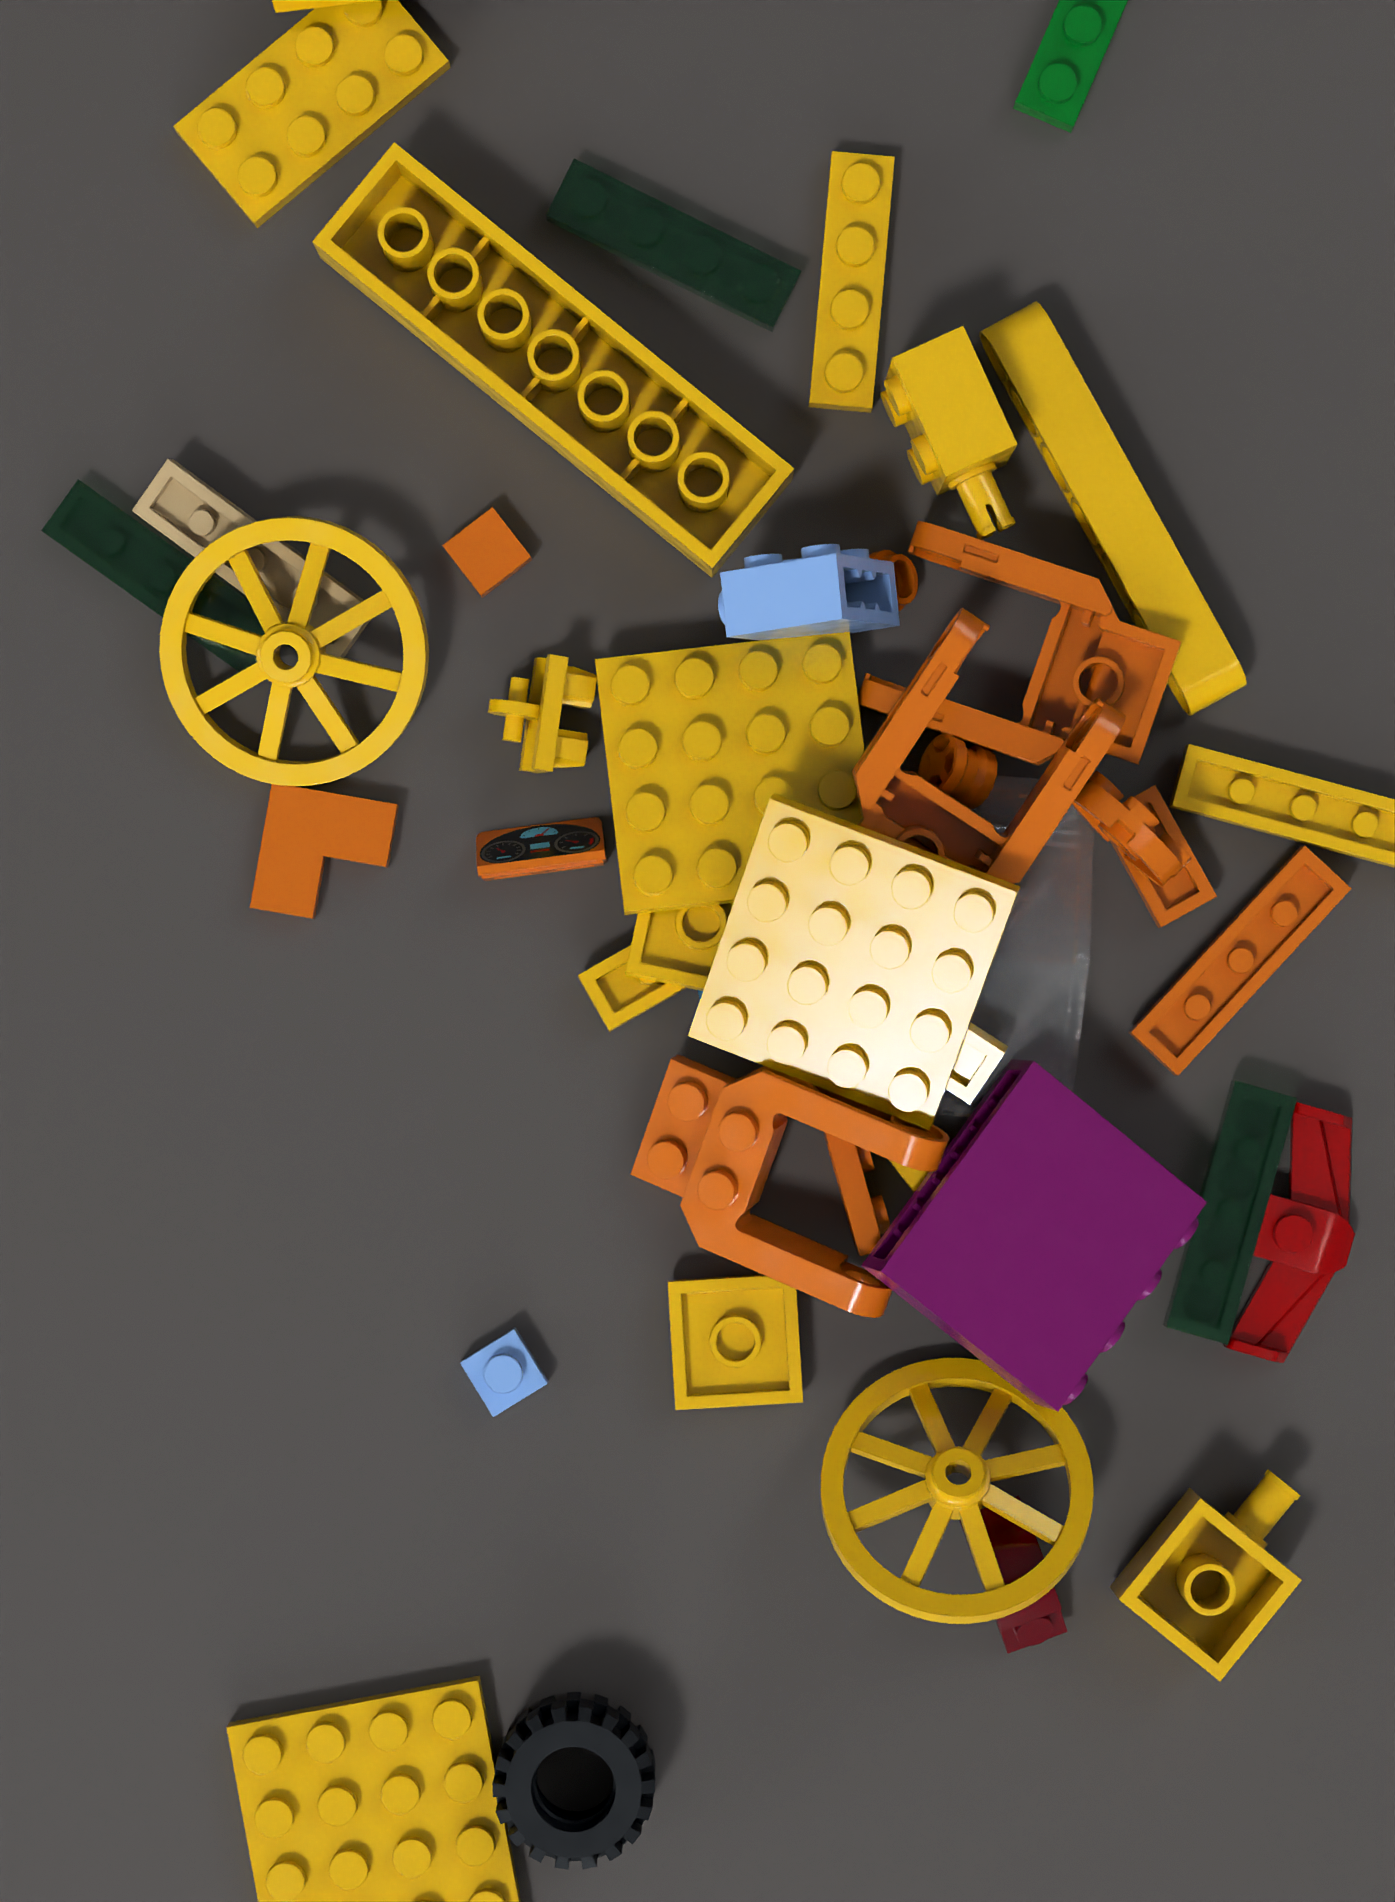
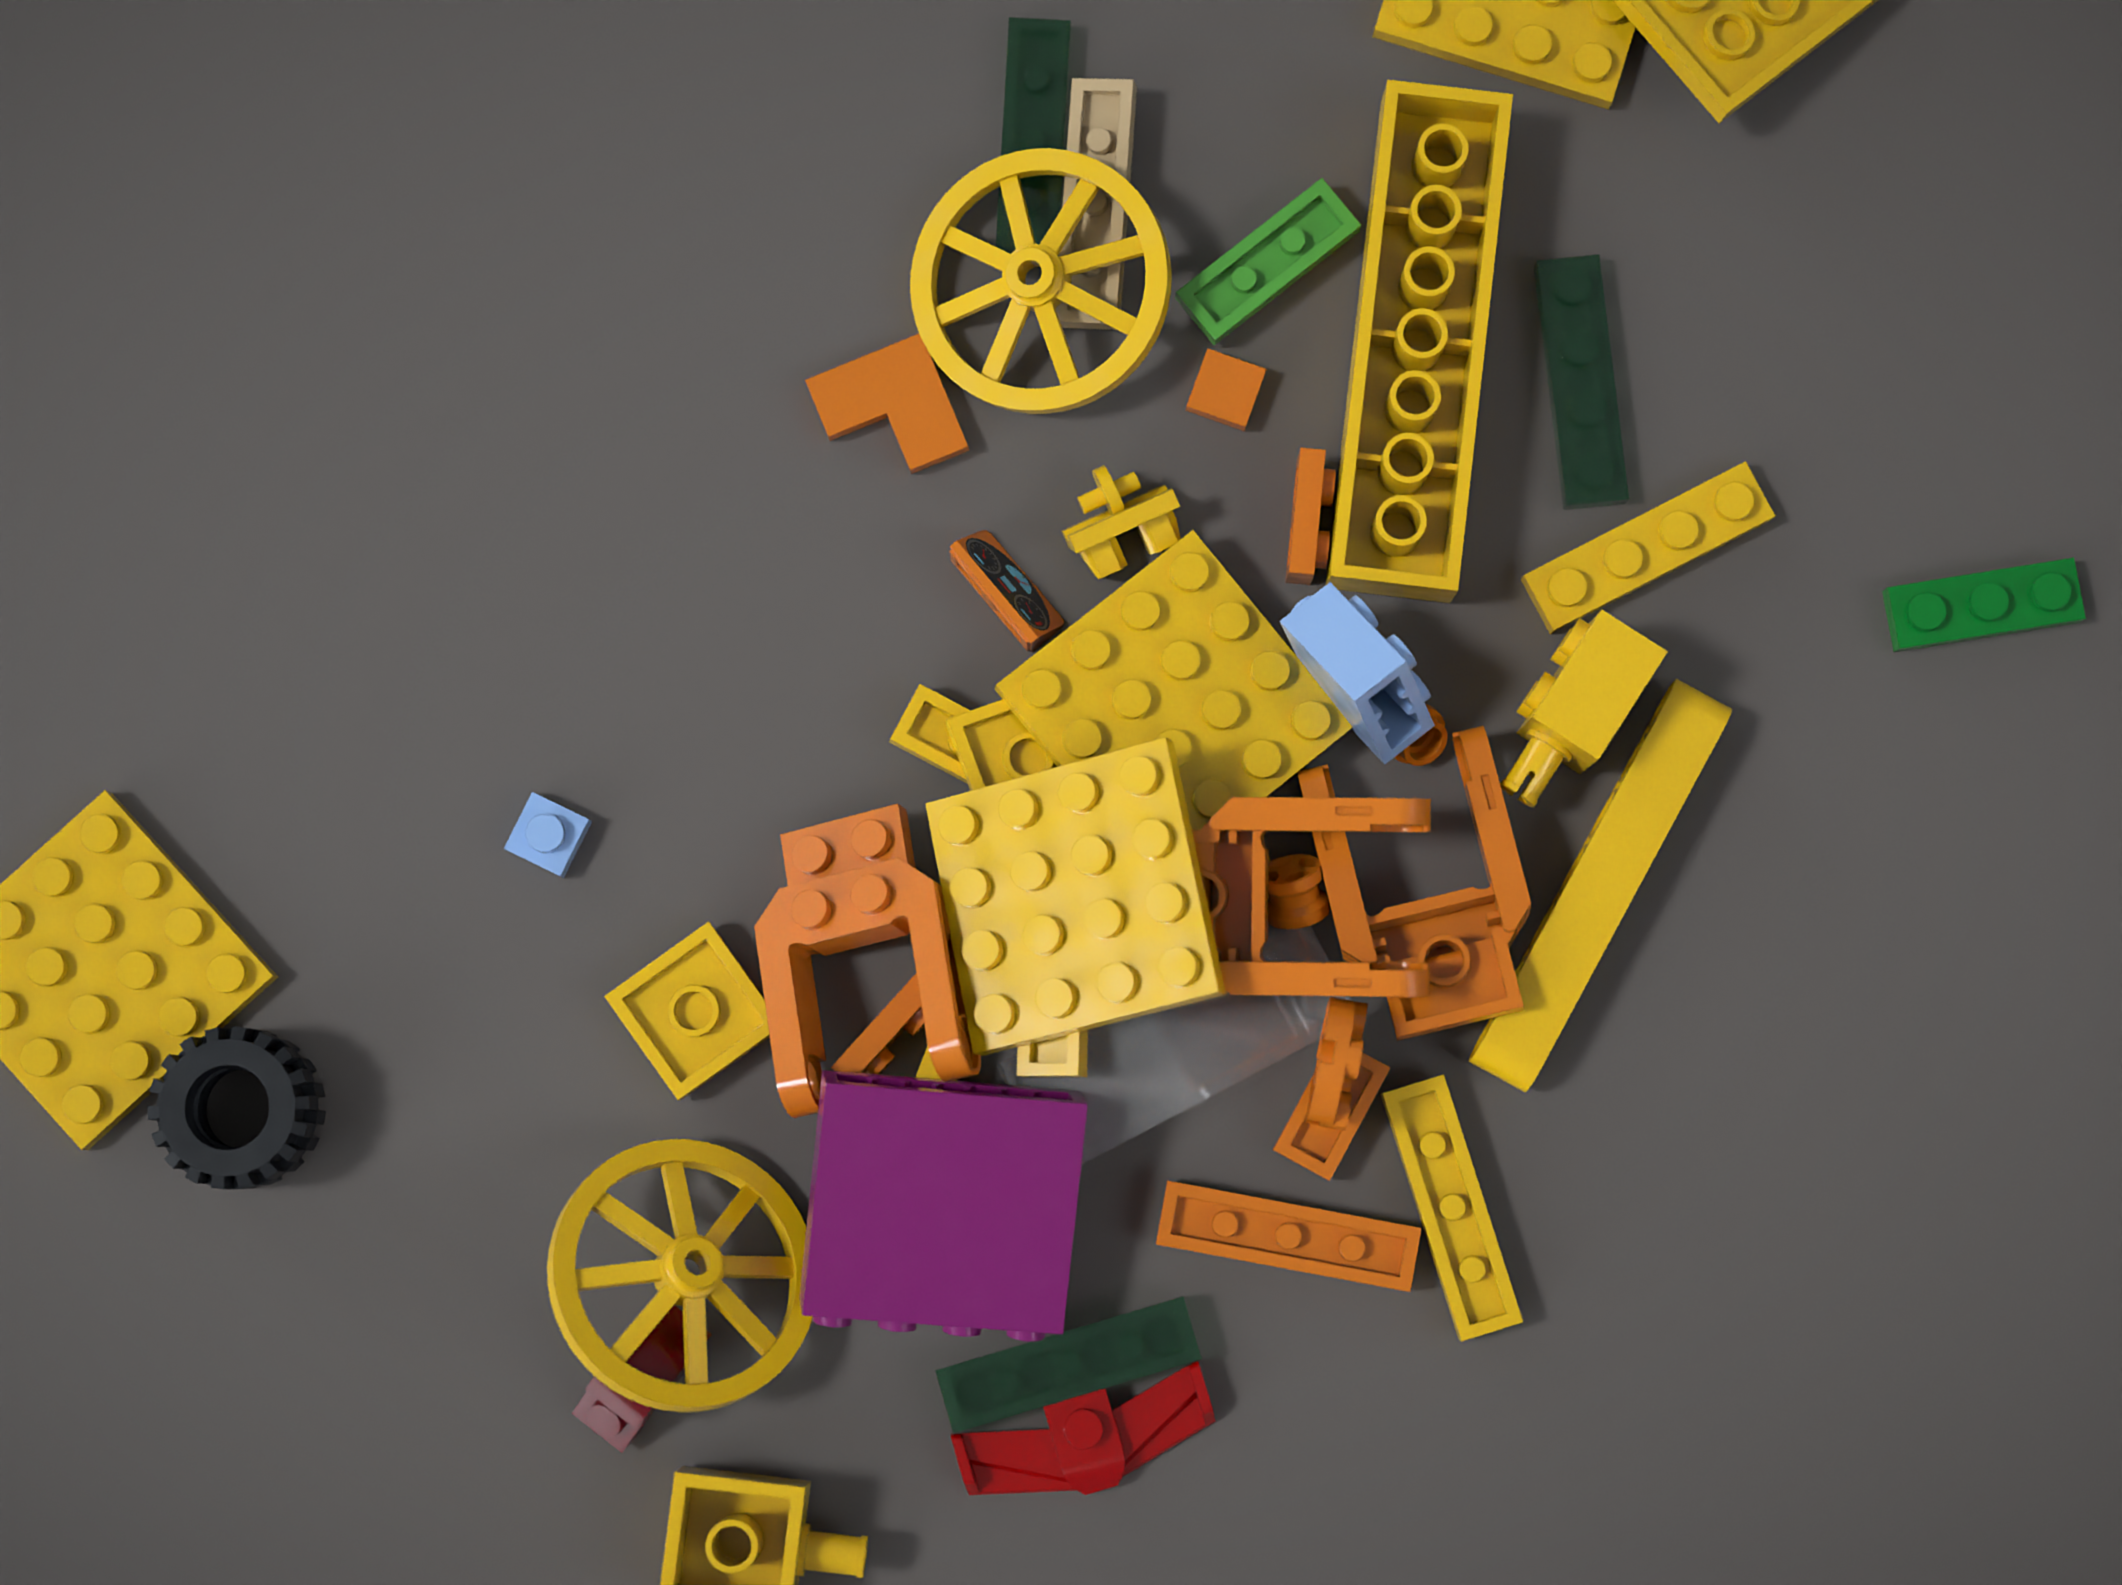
camera: 60 degrees right, 5 degrees down
(399, 445) = (1268, 261): none -> bright green plate
(622, 535) = (1312, 489): none -> orange plate

